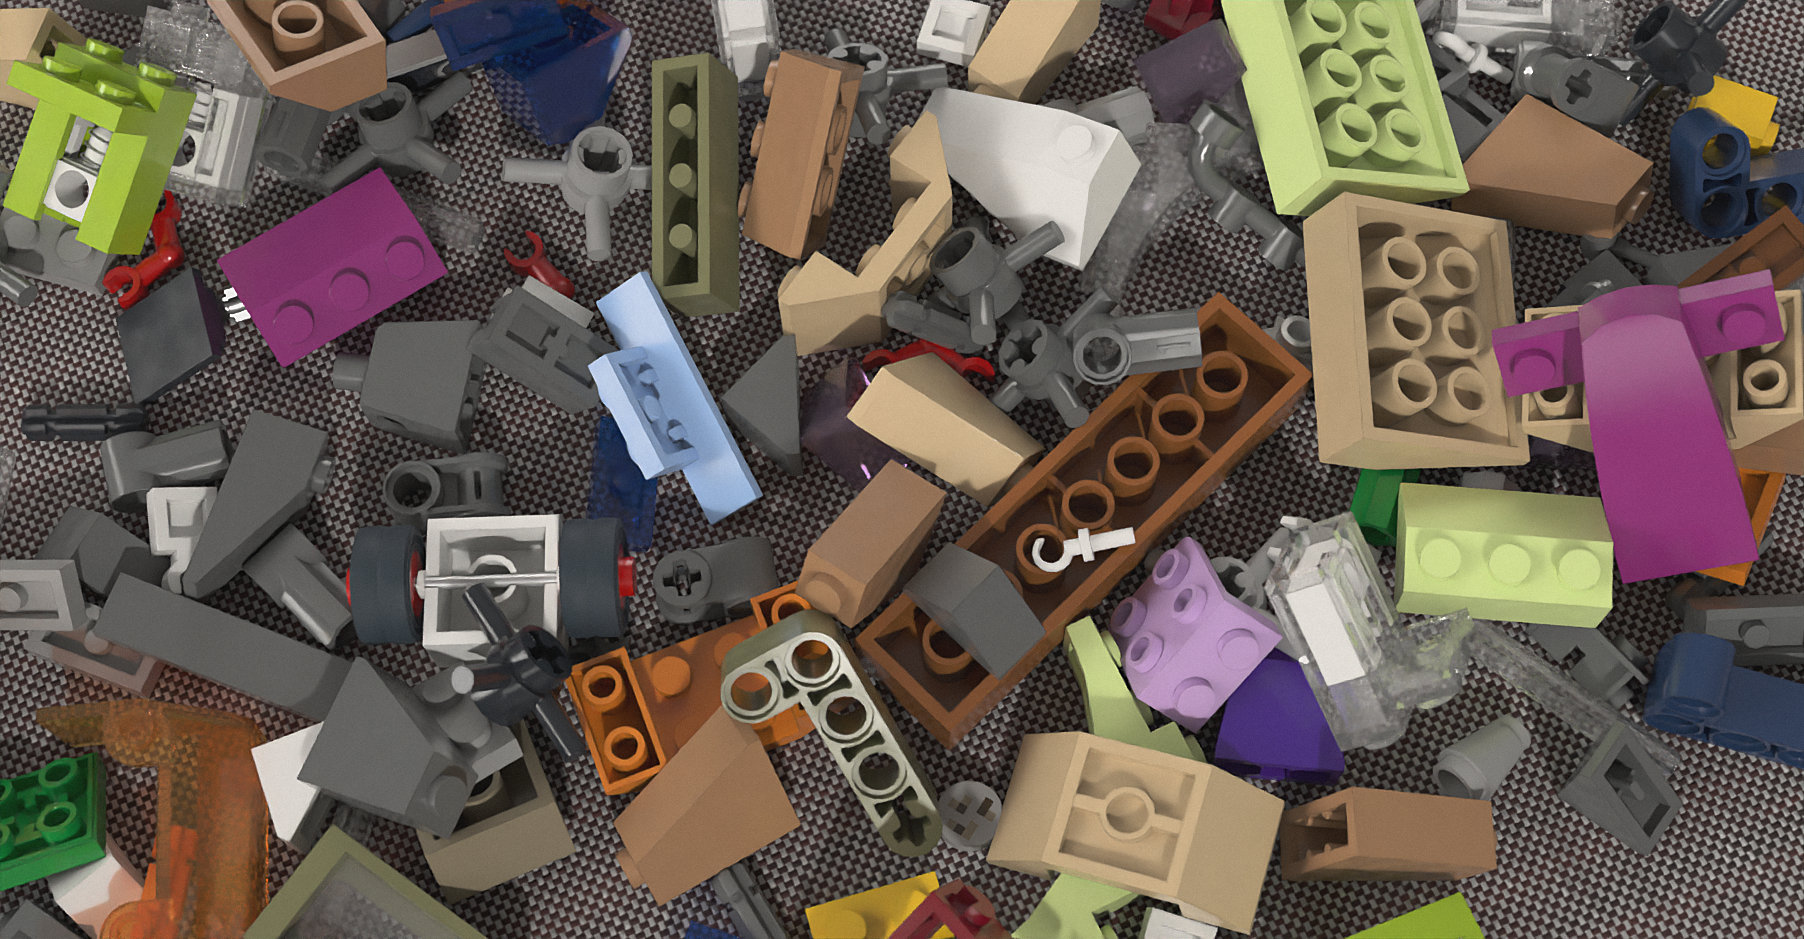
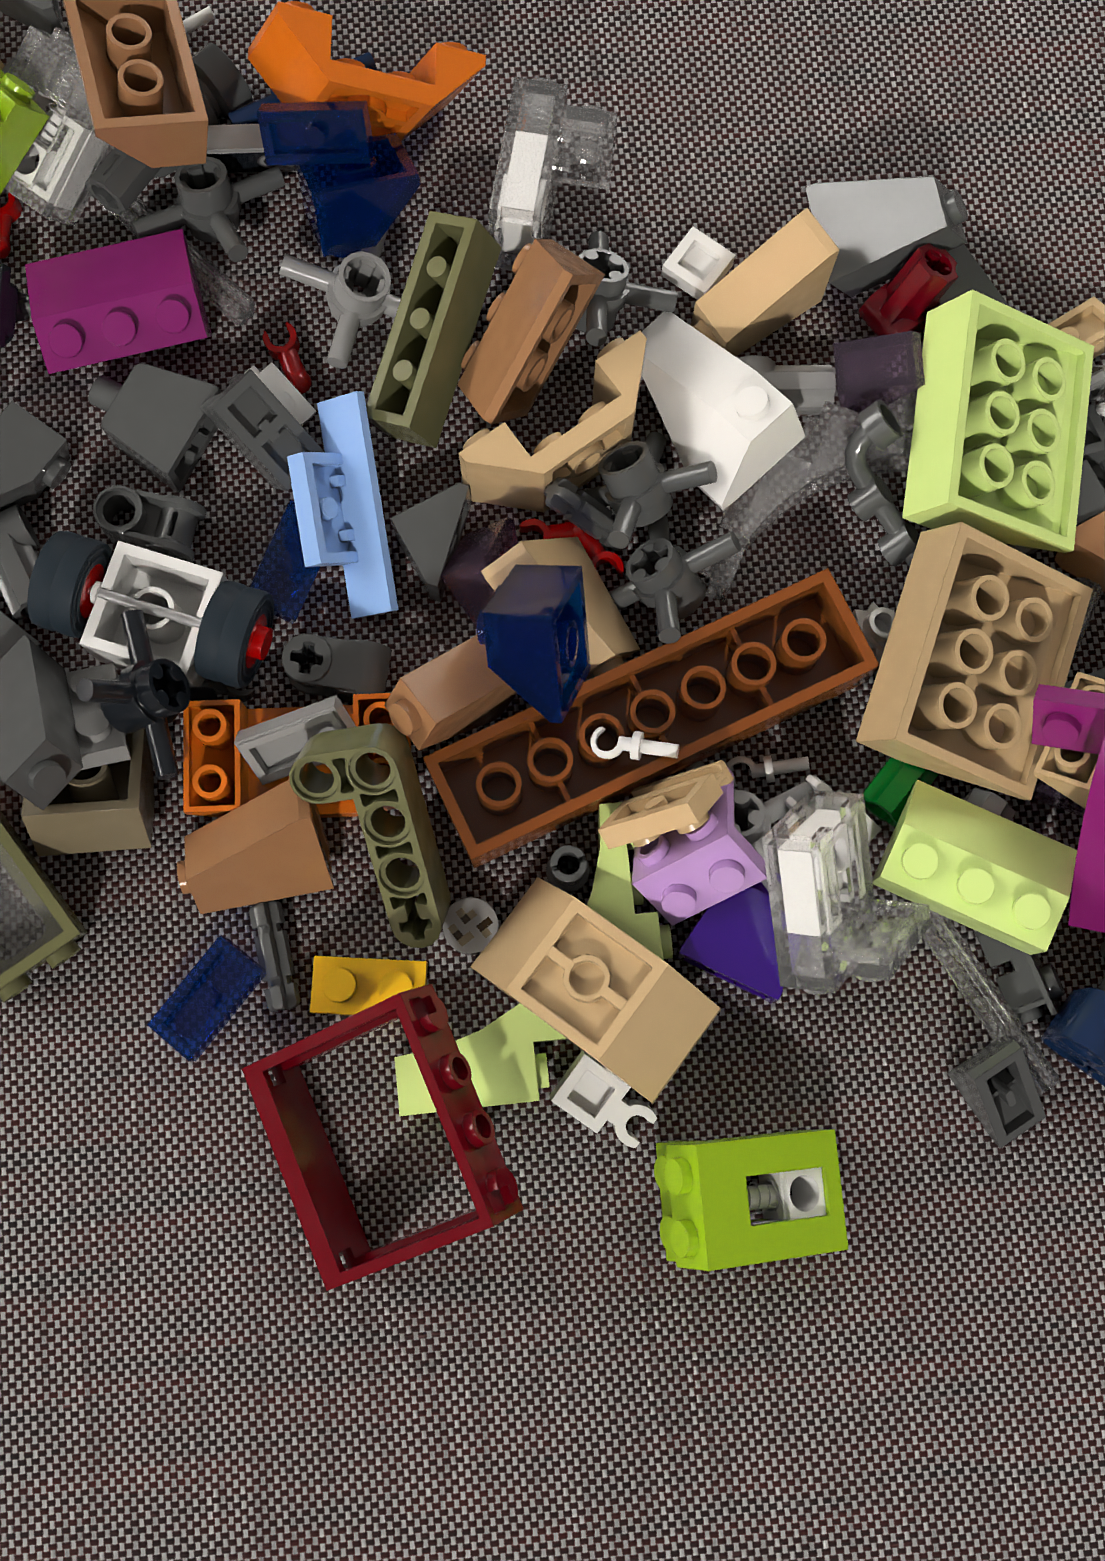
camera: 15 degrees right, 10 degrees up
(689, 679) = (276, 743): none -> light grey tile
(939, 458) = (539, 636): none -> clear blue slope
(976, 608) = (527, 767): dark grey slope -> none
(1055, 695) = (565, 882): none -> dark grey pin
(1146, 344) = (747, 592): dark grey piece -> none
(1150, 590) = (666, 806): none -> tan plate
(1234, 530) = (771, 768): none -> white hand
(1387, 837) = (795, 1064): medium nougat slope -> none
(1481, 760) = (895, 1027): light grey cone -> none

